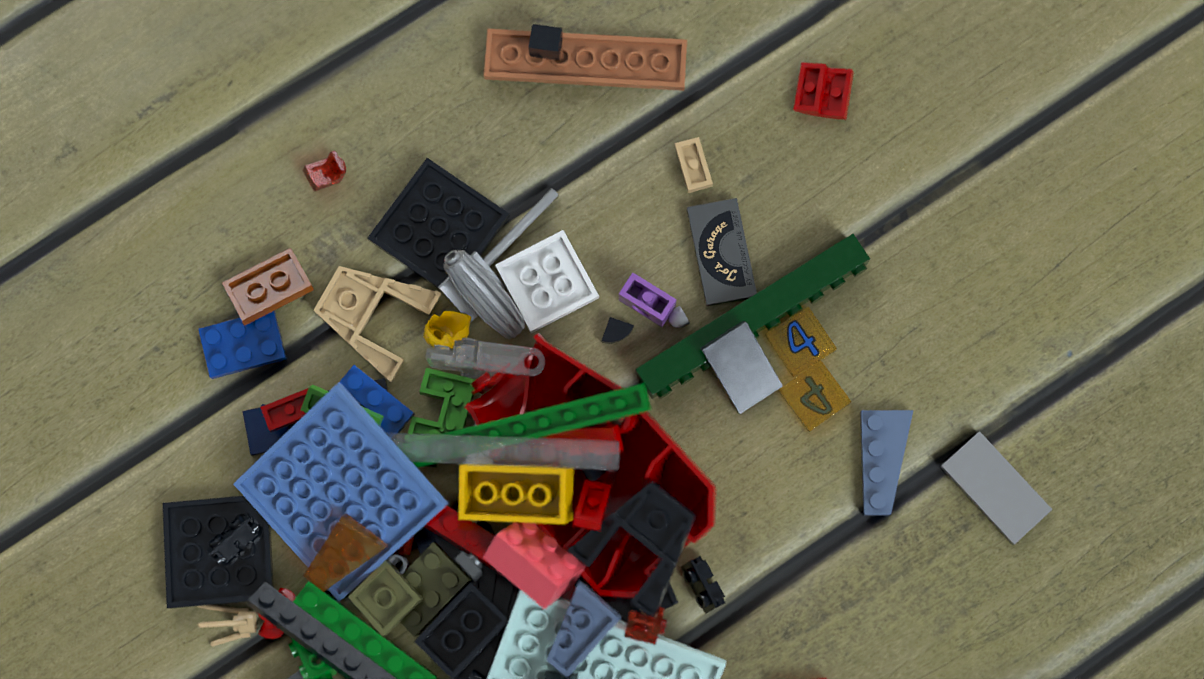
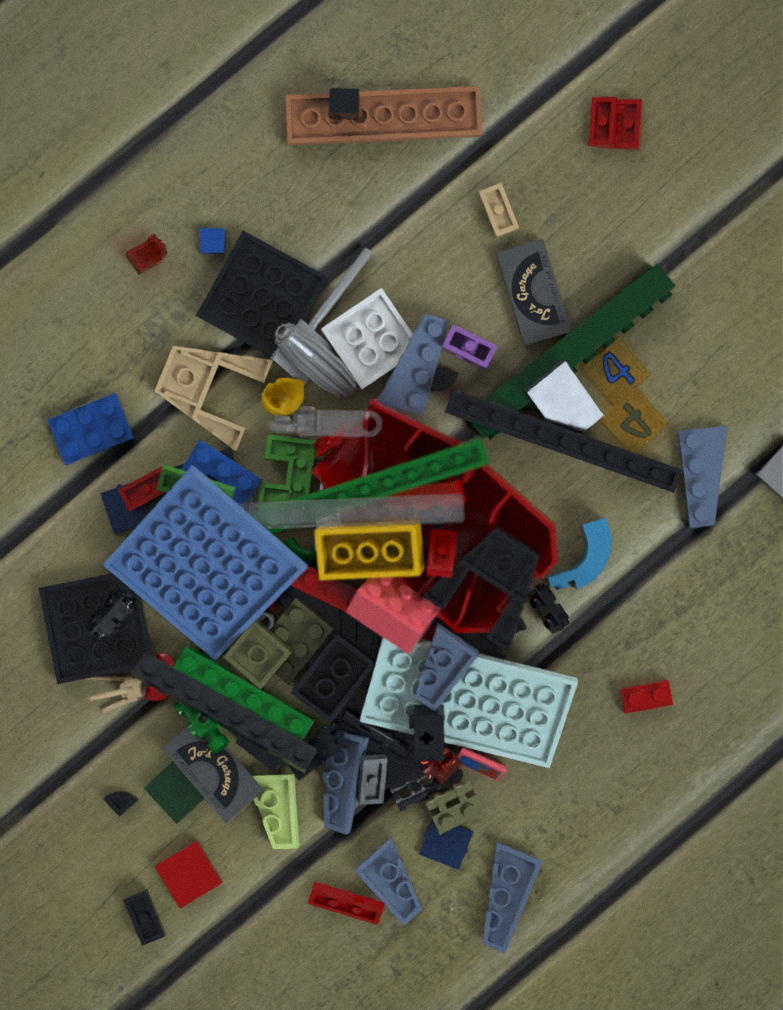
camera: 10 degrees left, 10 degrees up
(267, 286) = (107, 372): plate -> none
(343, 552) = (214, 618): clear orange wing -> none
(394, 166) = (212, 240): none -> blue tile
(452, 499) = (306, 556): none -> green arm
(469, 565) = (333, 617): dark grey plate -> none
(589, 316) = (413, 376): none -> sand blue wing
(644, 627) = (502, 659): clear red bracket -> none
(678, 318) = (499, 361): light grey hinge -> none
(736, 406) = (562, 440): none -> black plate
(763, 524) = (597, 552): none -> dark azure arch

